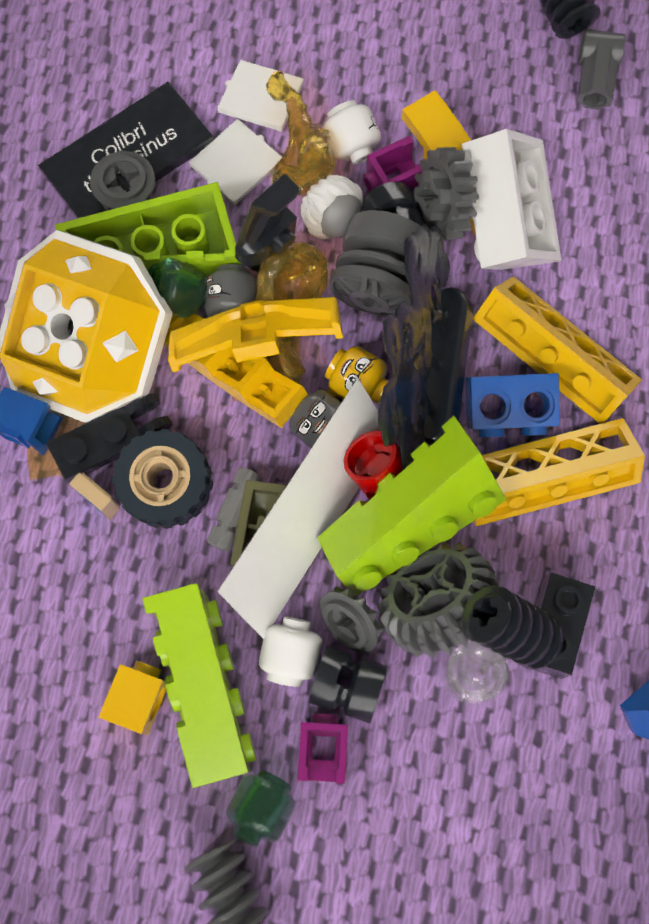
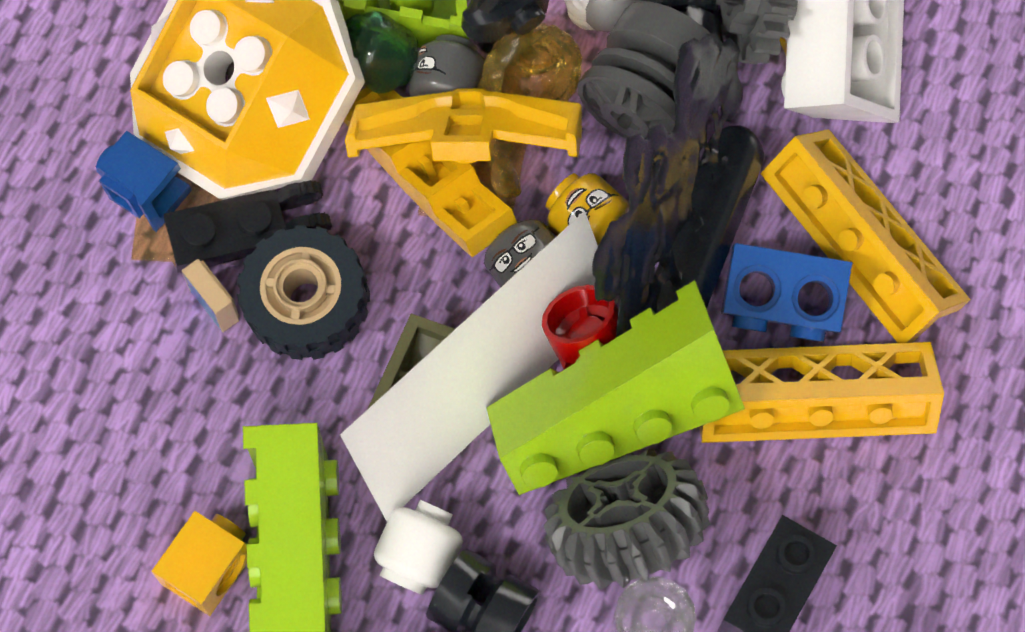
camera: 10 degrees right, 5 degrees down
(228, 516) = (364, 380): light grey axle -> none
(357, 631) = (512, 542): dark grey gear -> none
(512, 627) = (710, 566): black piece -> none

